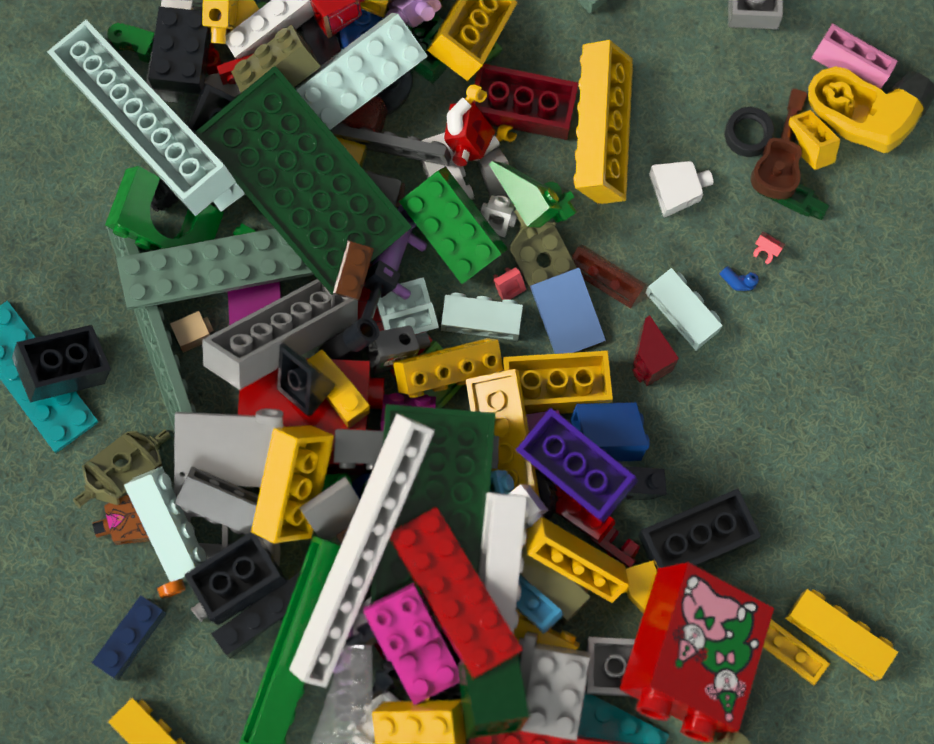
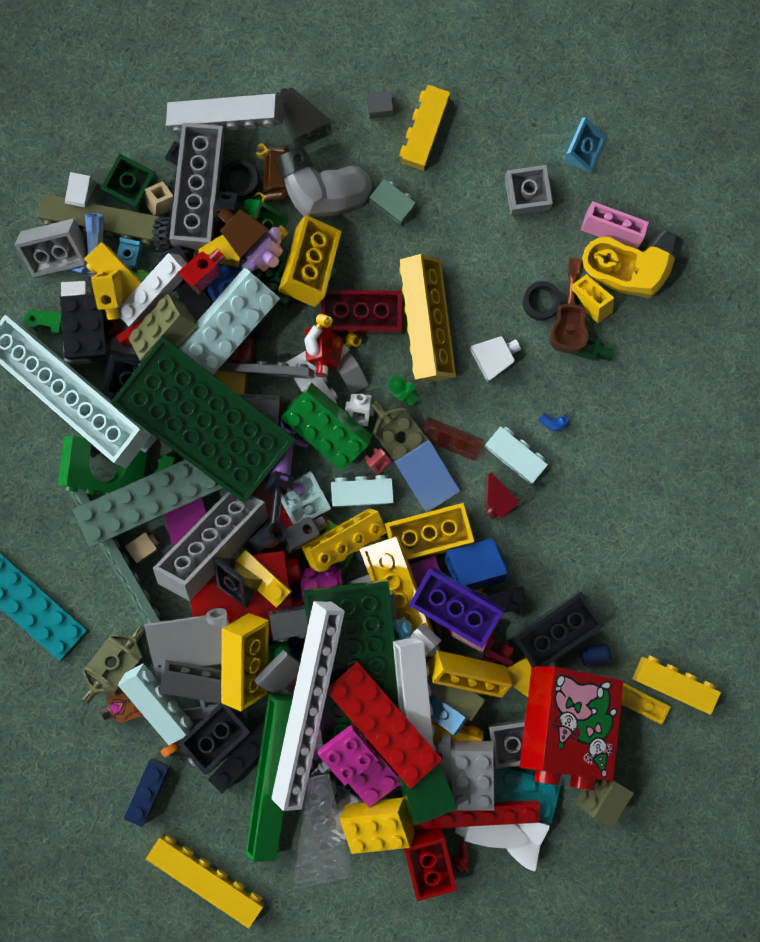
camera: 10 degrees left, 10 degrees up
(60, 363) = (48, 595): black brick -> none
(353, 270) = (257, 485): reddish brown brick -> none
(532, 199) = (381, 394): slope -> none
(744, 577) = (596, 655): none -> dark blue brick
(768, 244) = (573, 390): coral tile -> none

